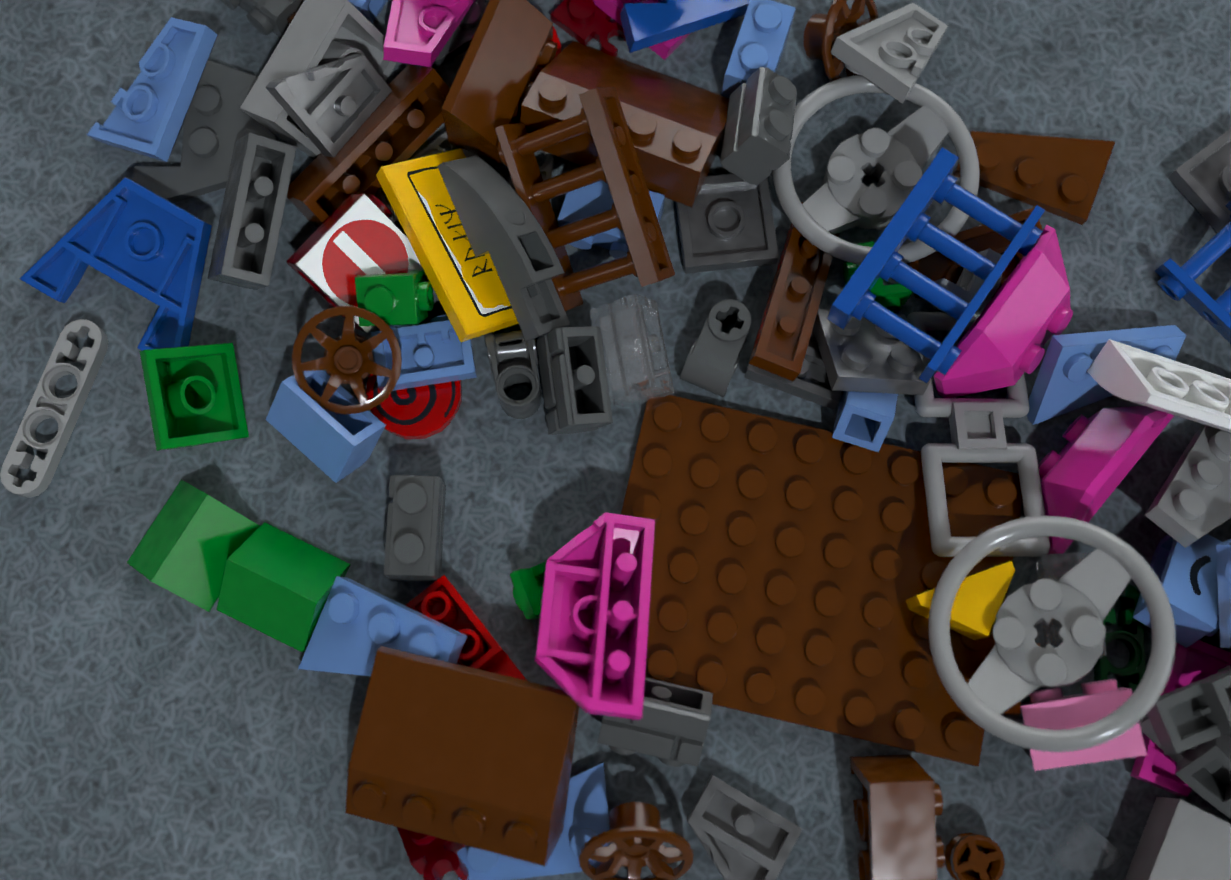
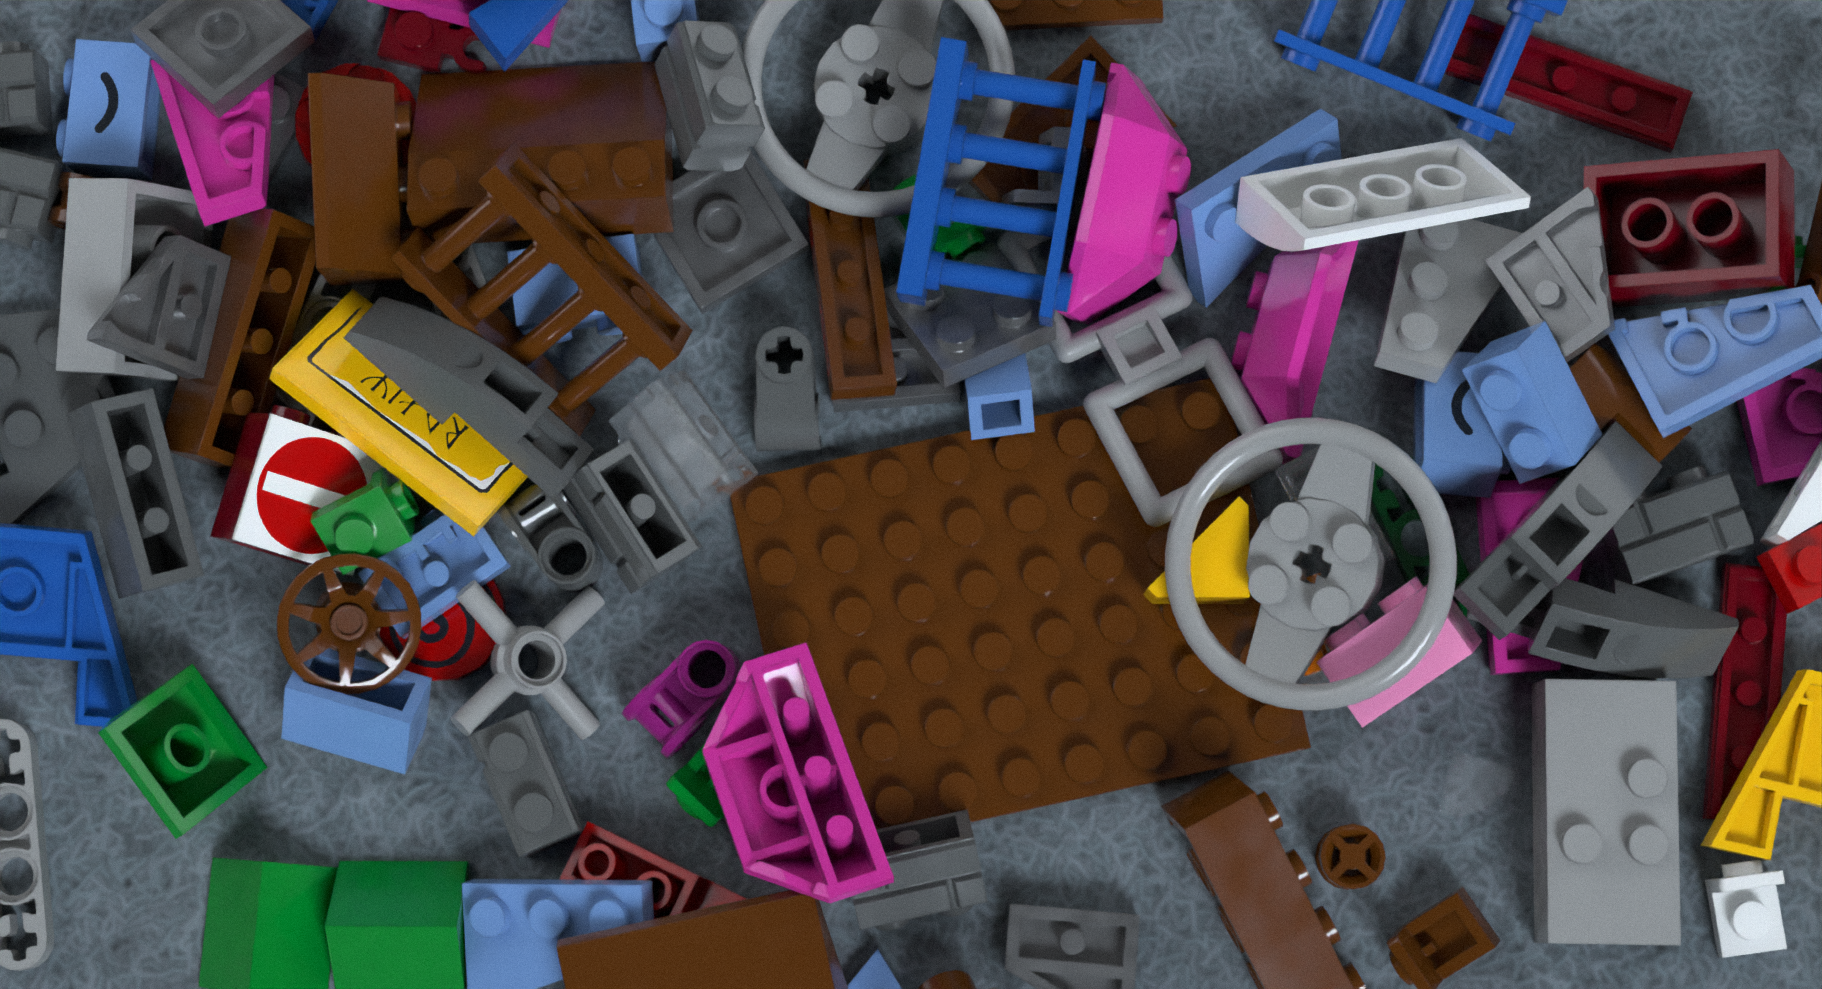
camera: 20 degrees left, 5 degrees up
(438, 449) = (504, 660): none -> light grey bar
(549, 519) = (681, 697): none -> magenta piece

